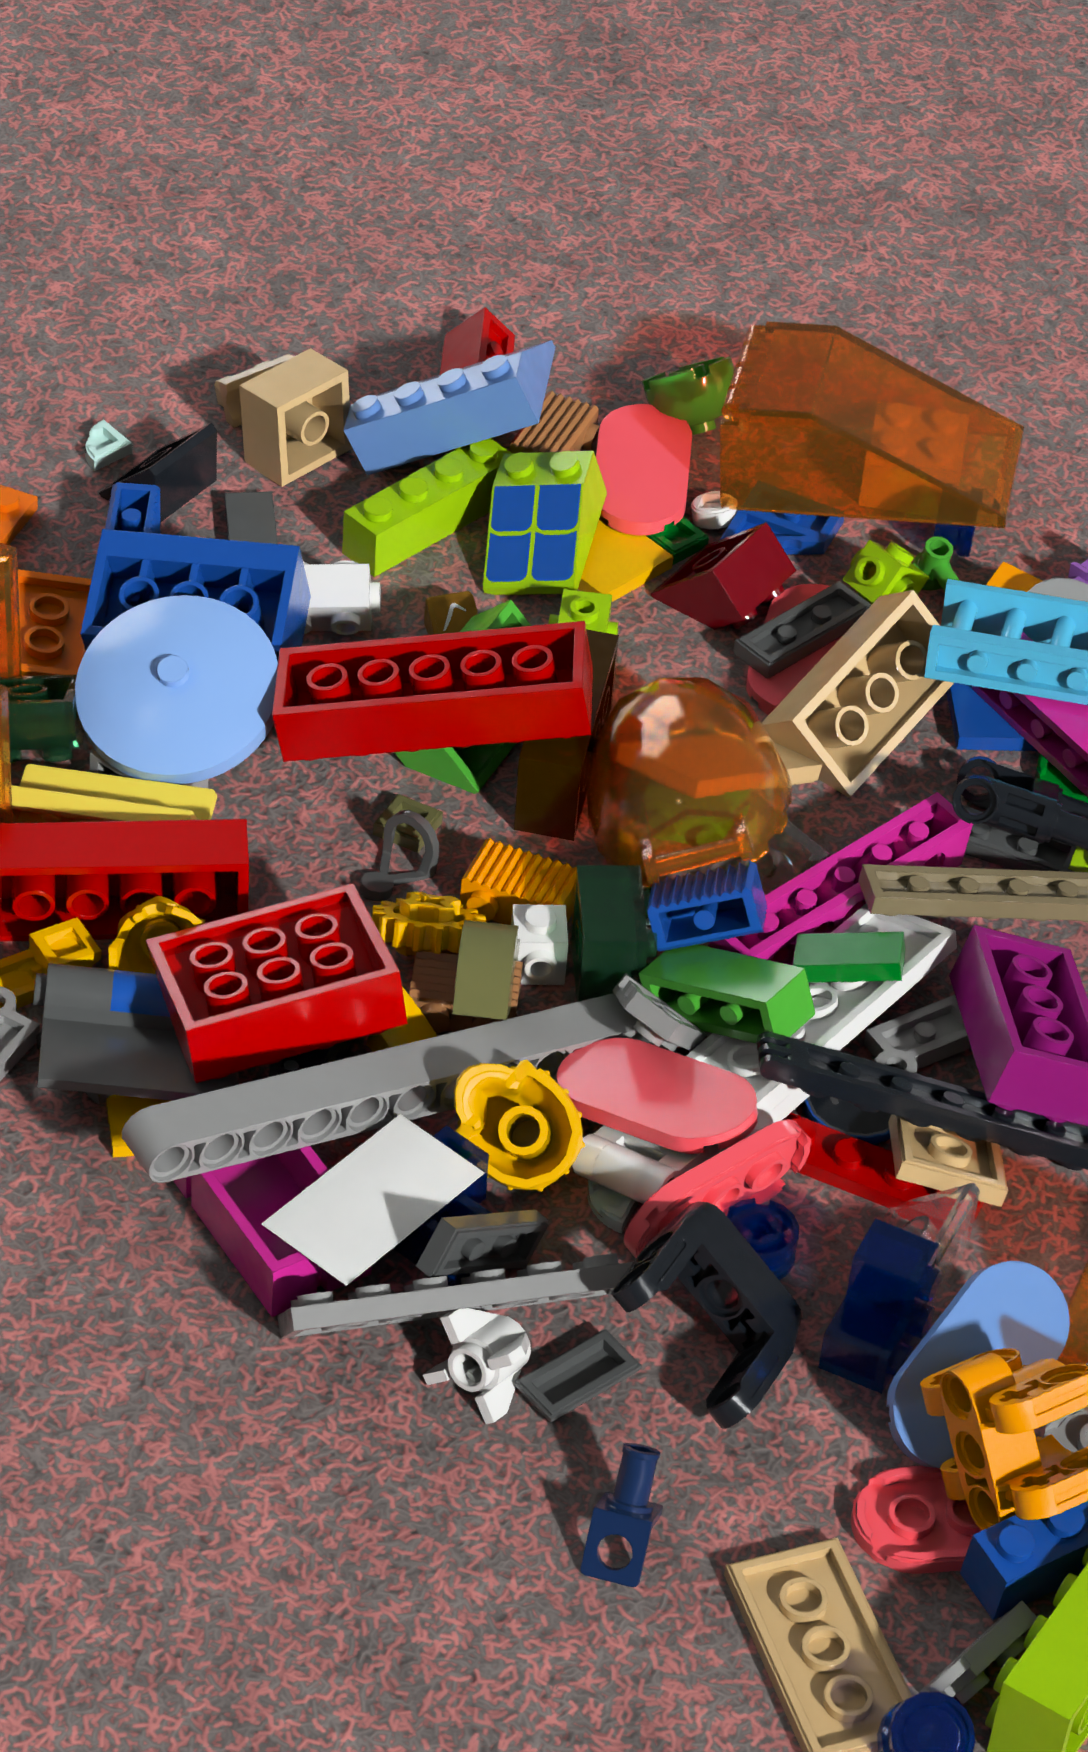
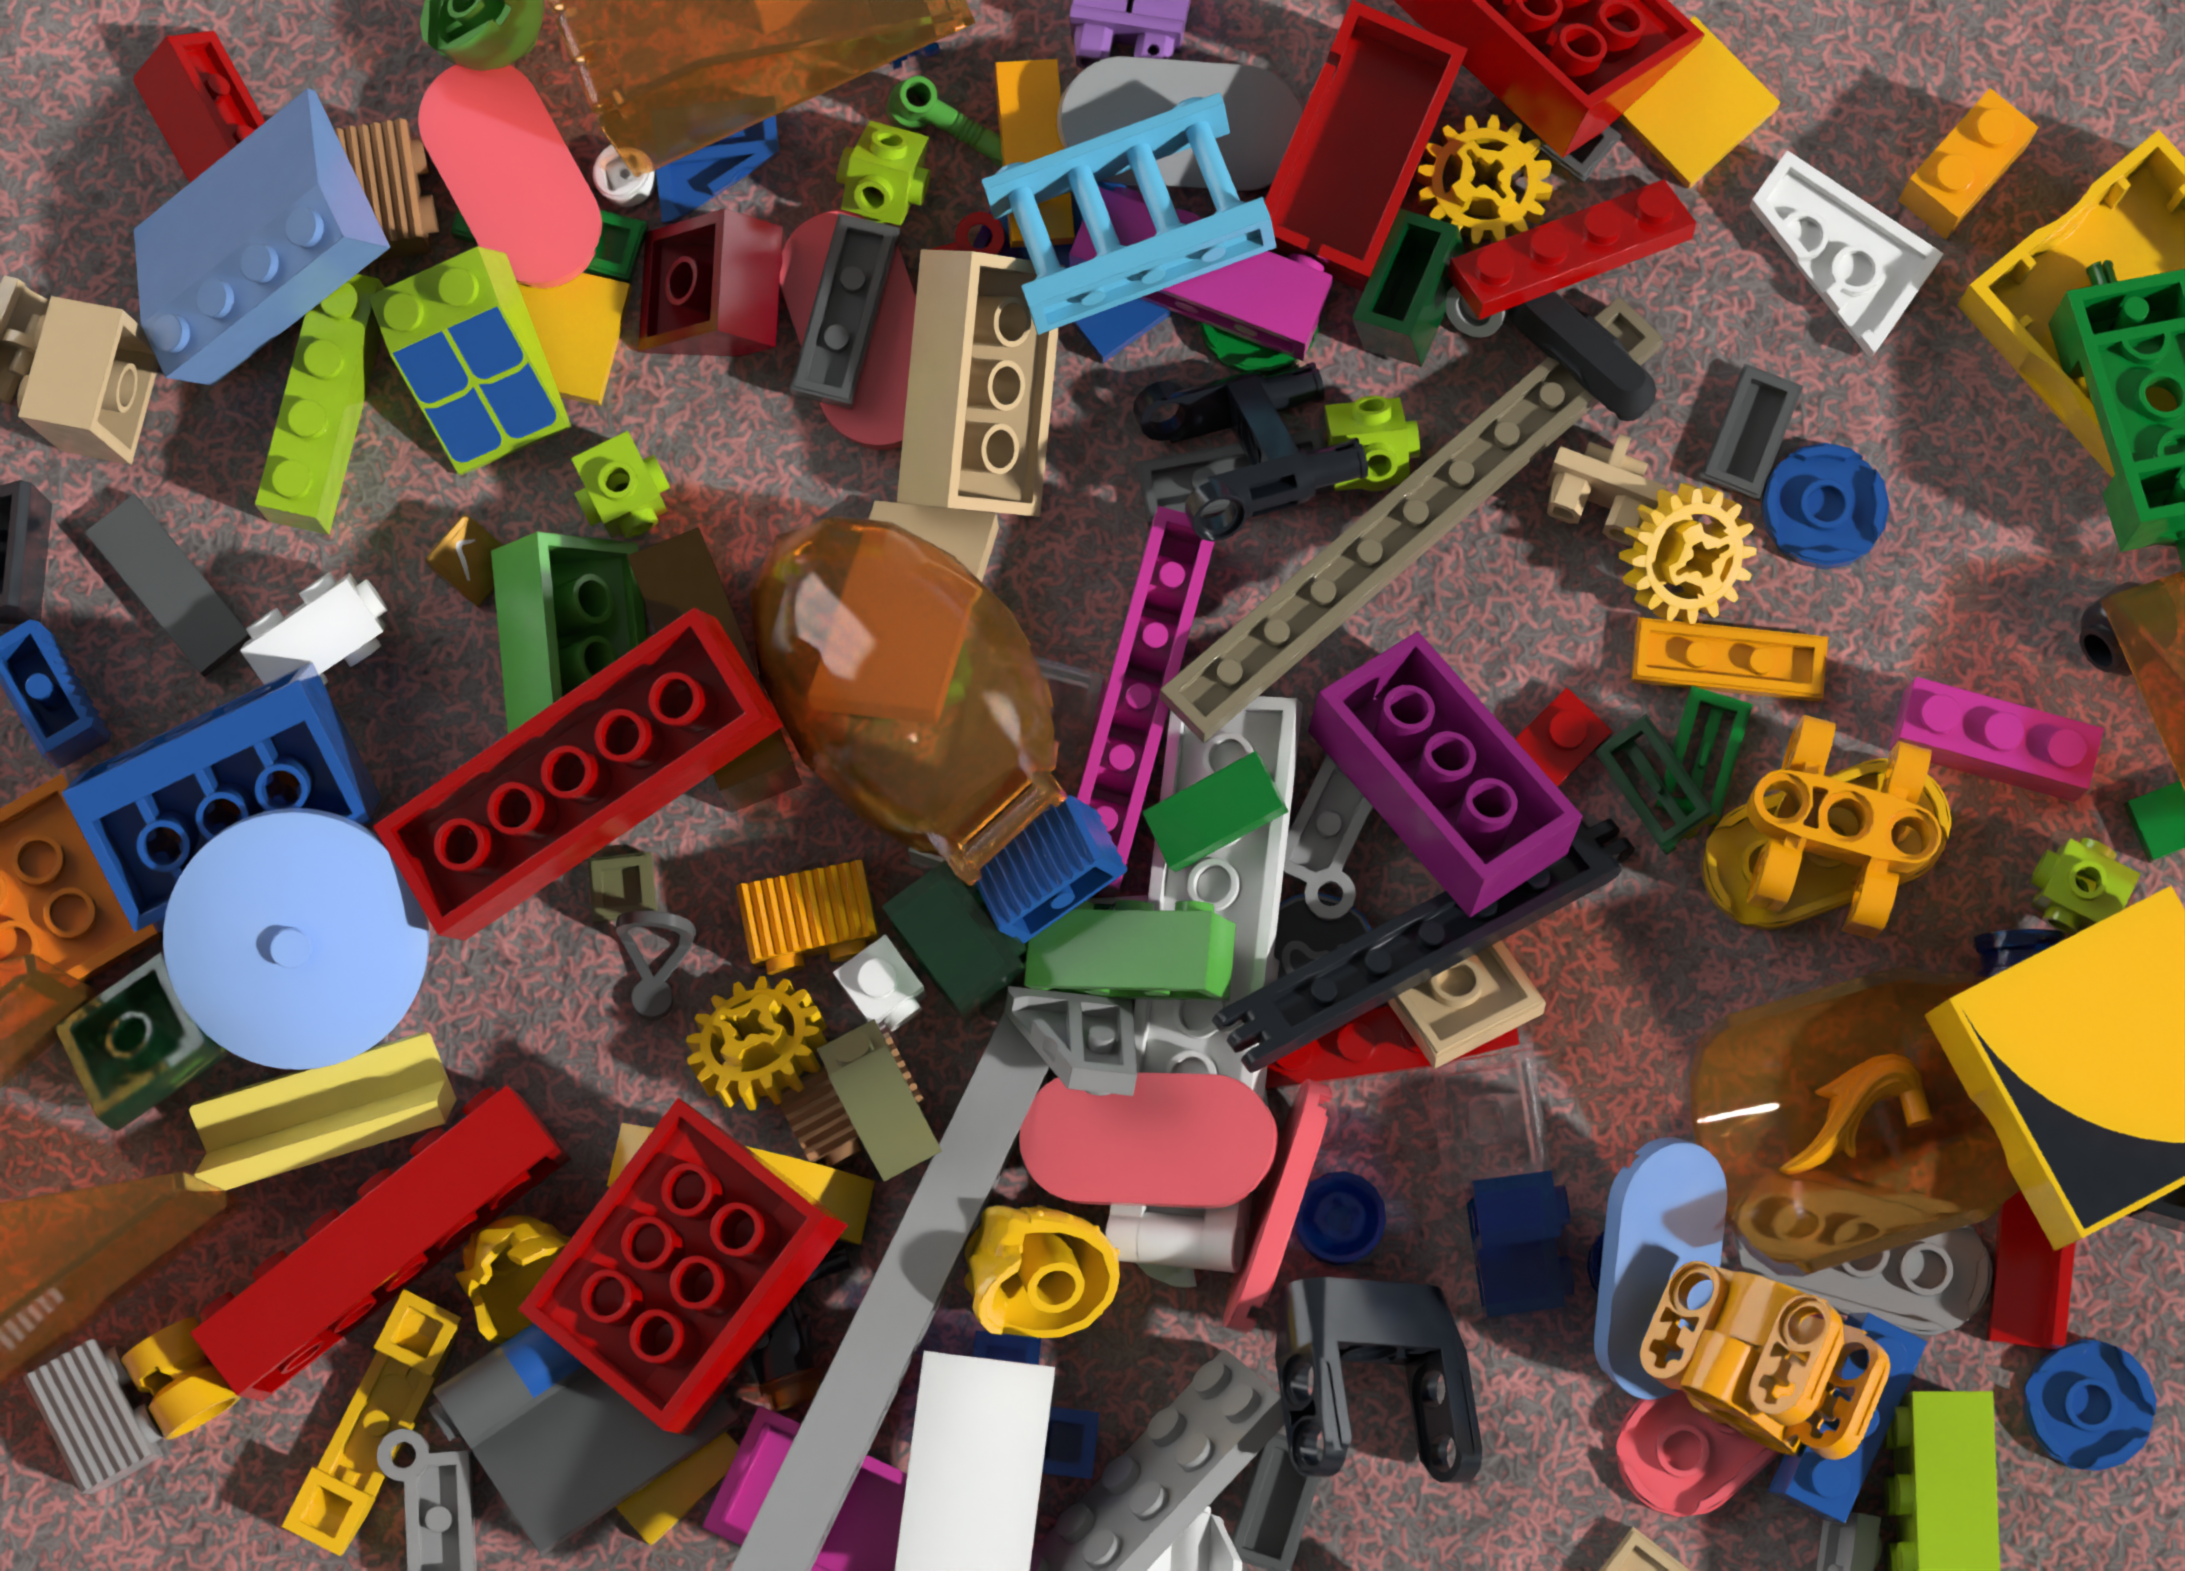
camera: 25 degrees left, 35 degrees up
(482, 1242) = (1110, 1451): dark grey tile -> none

